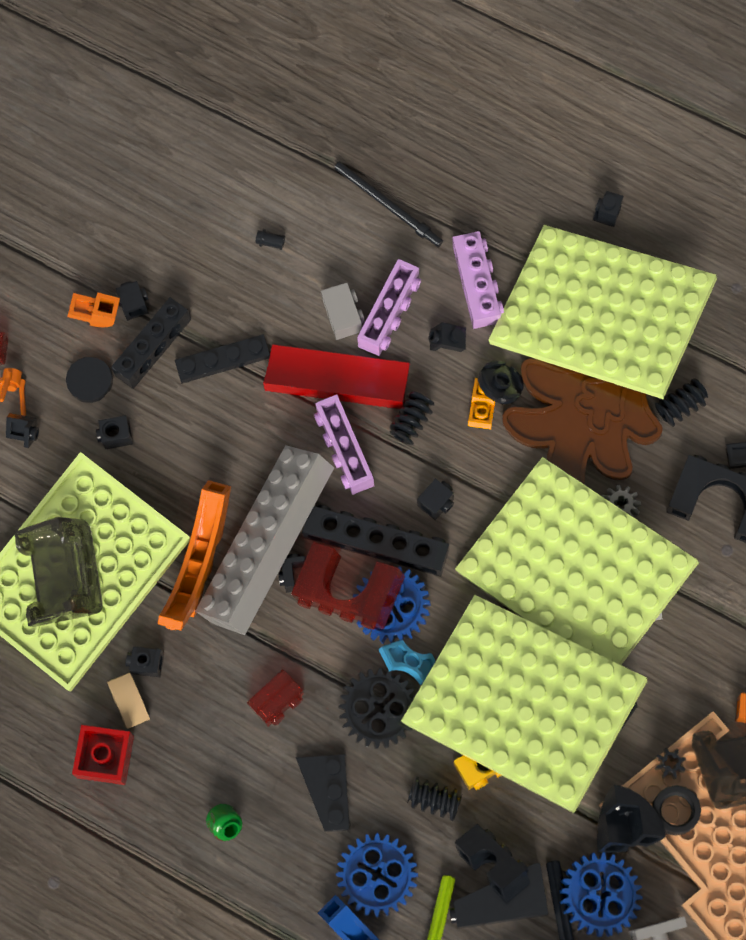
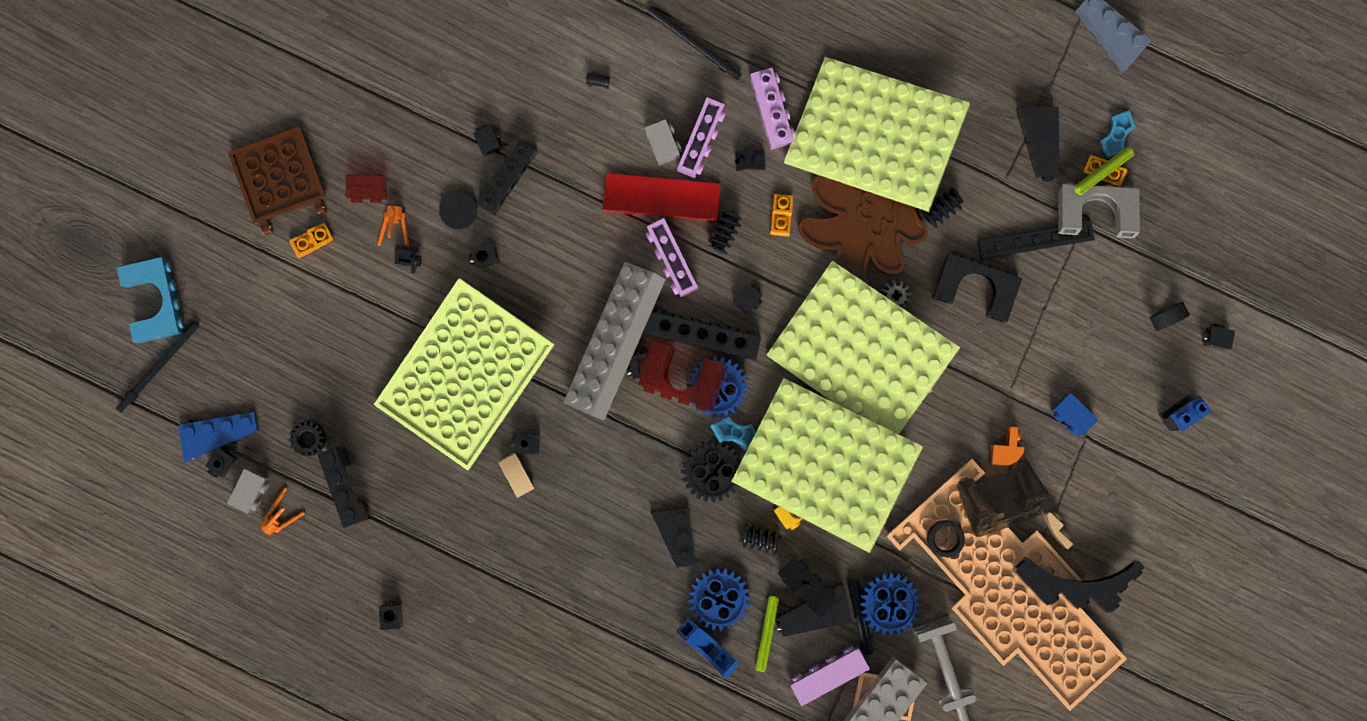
camera: 10 degrees left, 15 degrees up
(62, 570) = (454, 378): clear smoke windscreen -> none
(98, 311) = (457, 151): orange brick -> none
(103, 754) = (500, 520): red brick -> none
(199, 556) = (561, 361): orange arch -> none
(222, 359) = (566, 187): black plate -> none
(224, 822) = (599, 566): green head -> none
(276, 698) = (631, 467): clear red brick -> none
(500, 382) = (795, 197): black tile -> none
(608, 209) = (878, 40): black brick -> none
(627, 822) = (909, 550): black brick -> none
(667, 769) = (935, 501): black gear -> none

